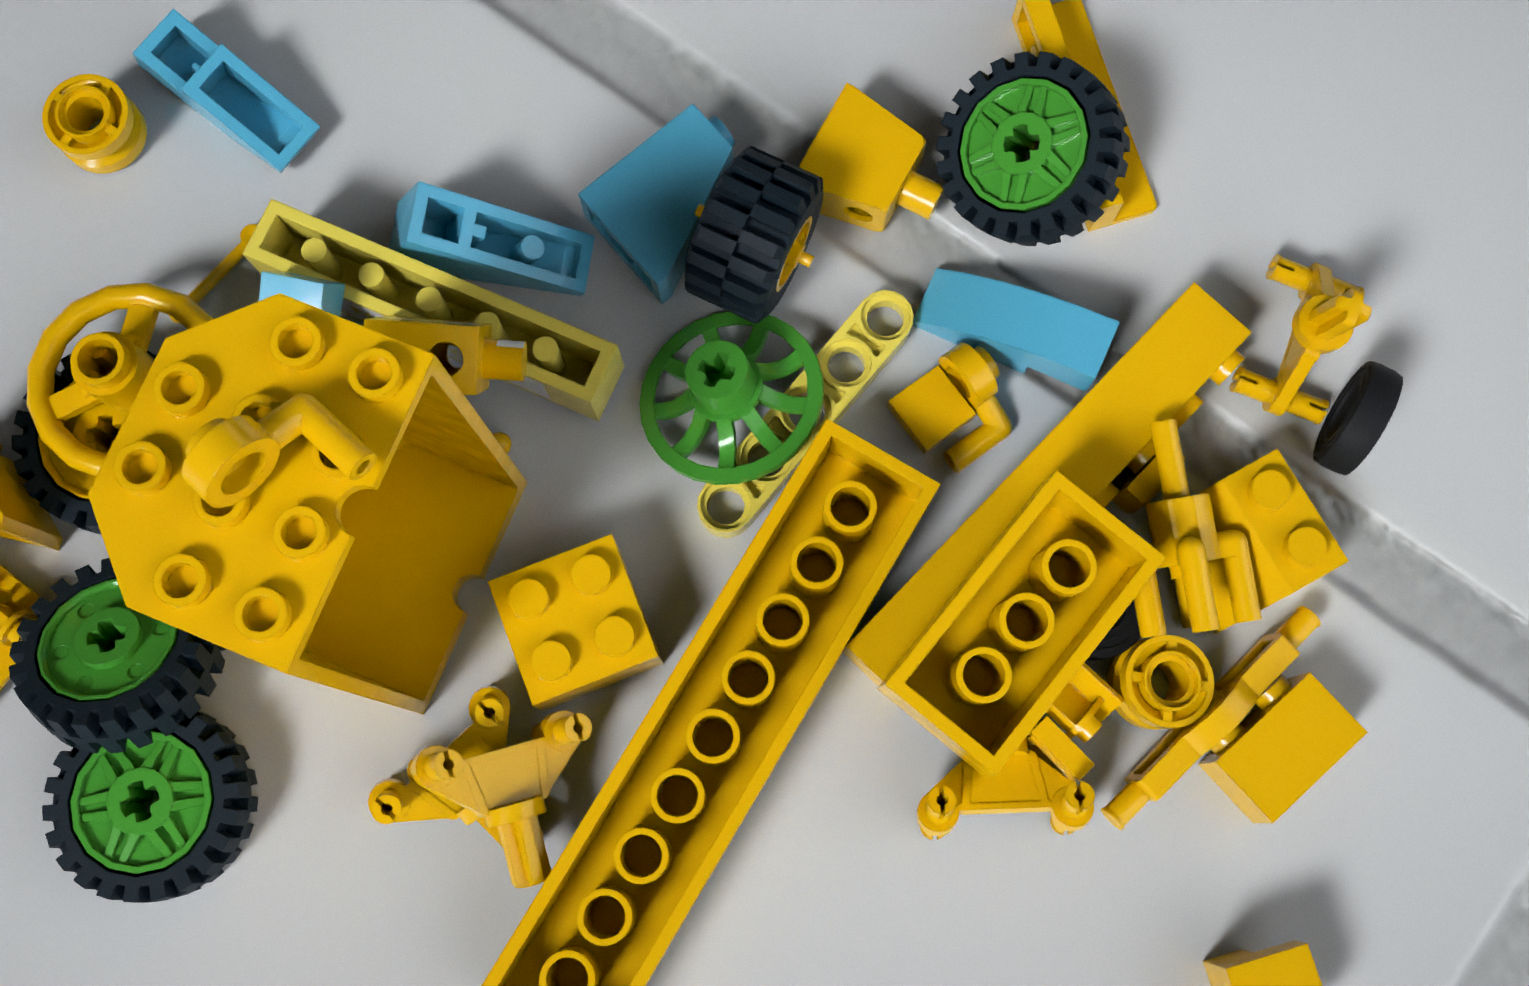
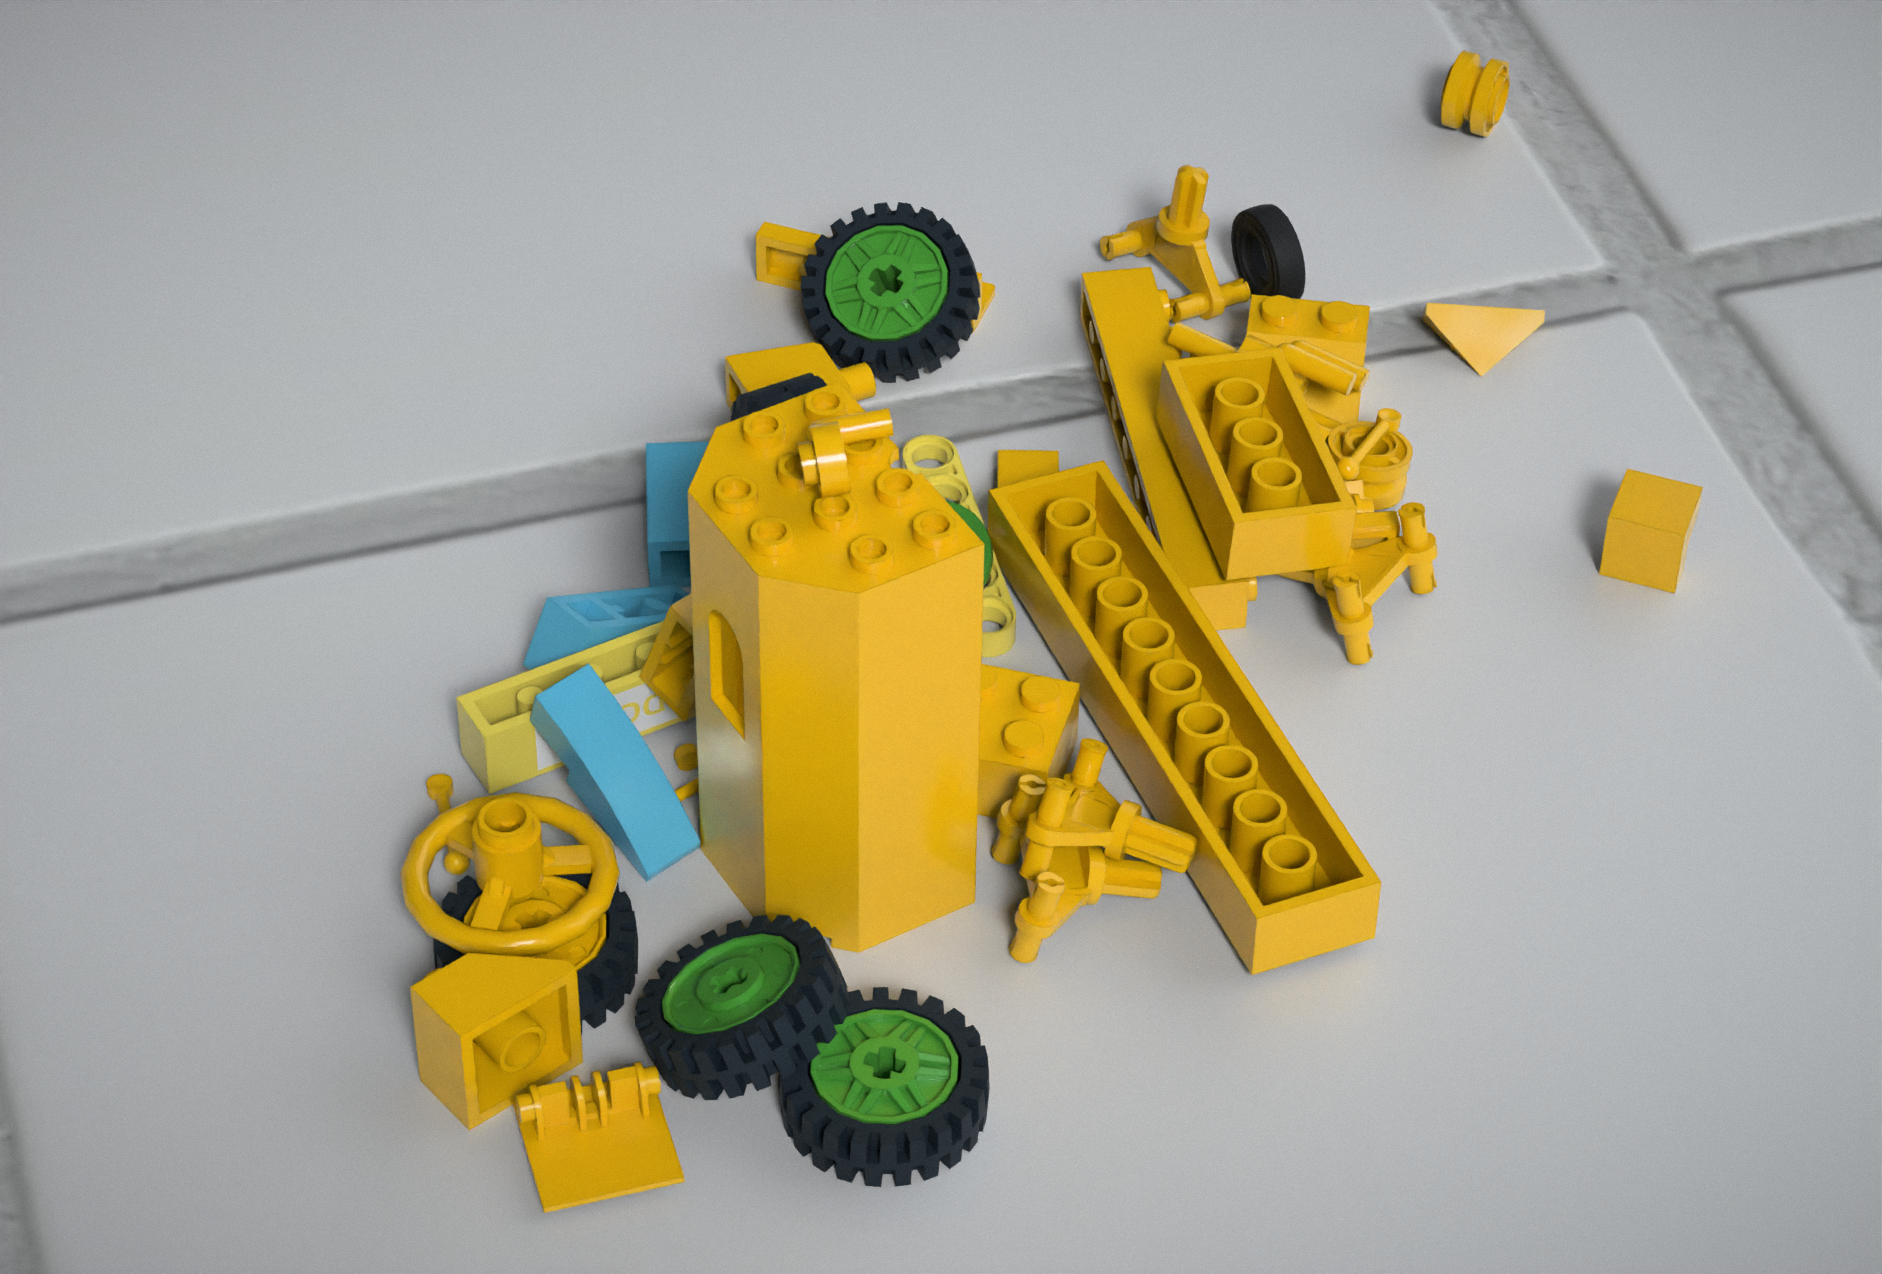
camera: 55 degrees left, 35 degrees down
(81, 102) = (229, 814): yellow wheel -> none
(225, 91) = (294, 723): medium azure slope -> none
(975, 378) = (1039, 435): yellow plate -> none
(1017, 326) = (1016, 388): medium azure slope -> none
(1209, 677) = (1387, 421): none -> yellow hinge
(1231, 702) = (1426, 475): yellow piece -> none
(1282, 747) = (1473, 433): yellow brick -> none
(1439, 658) = (1481, 332): none -> yellow slope

